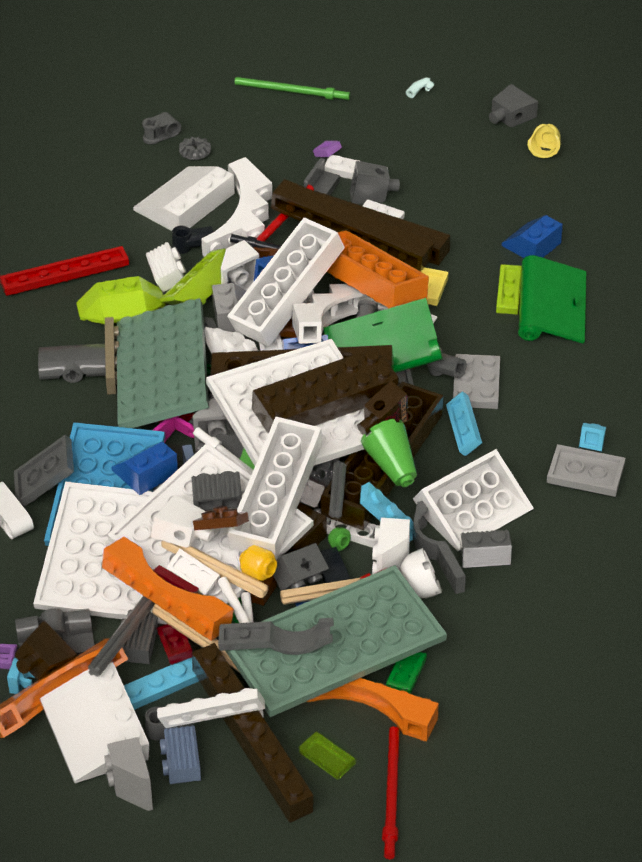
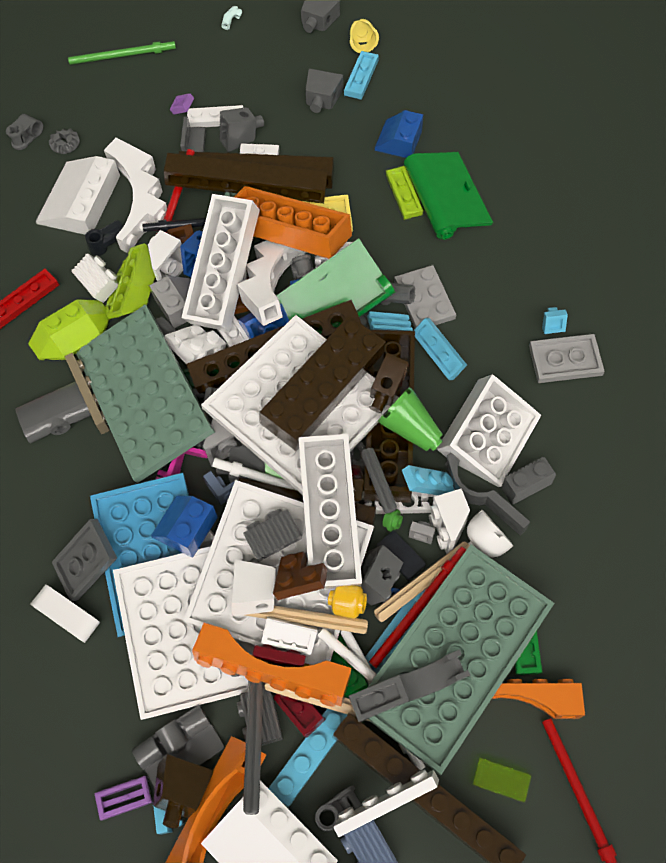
camera: 20 degrees left, 20 degrees up
(360, 556) = (422, 531): none -> light grey plate
(419, 380) = (389, 321): none -> medium azure tile
(477, 176) = (323, 89): none -> dark grey torso
(524, 175) = (361, 75): none -> medium azure plate

